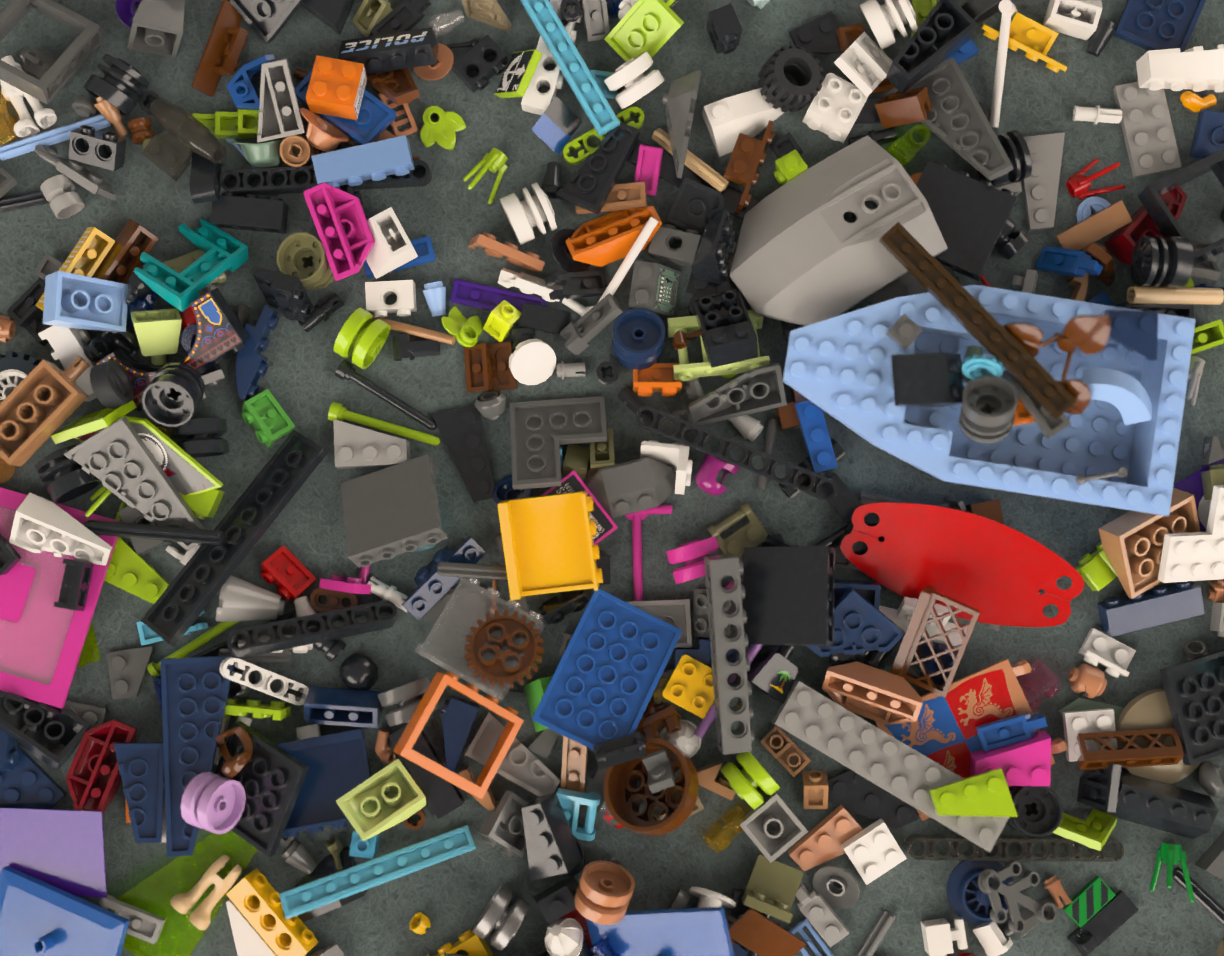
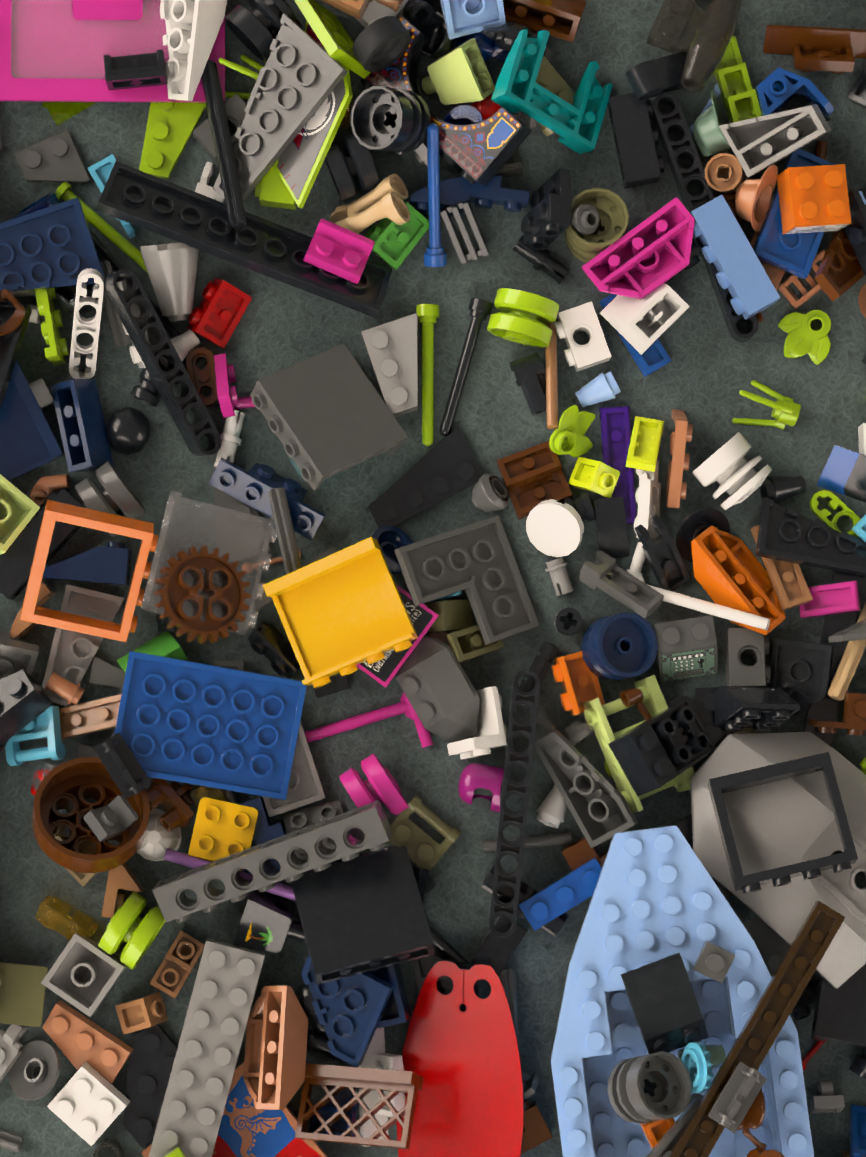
camera: 75 degrees right, 0 degrees up
(238, 424) = (379, 203): none -> tan piece
(266, 465) = (339, 251): none -> dark pink bracket
(290, 392) = (435, 254): none -> blue piece
(298, 266) = (585, 219): none -> dark grey plate
(301, 363) = (472, 254): none -> tile
(487, 274) = (644, 444): none -> neon yellow plate
(548, 776) = (64, 688): none -> nougat pin
(773, 205) = (771, 773): none -> black window
(1015, 342) = (737, 1097): none -> dark grey hinge

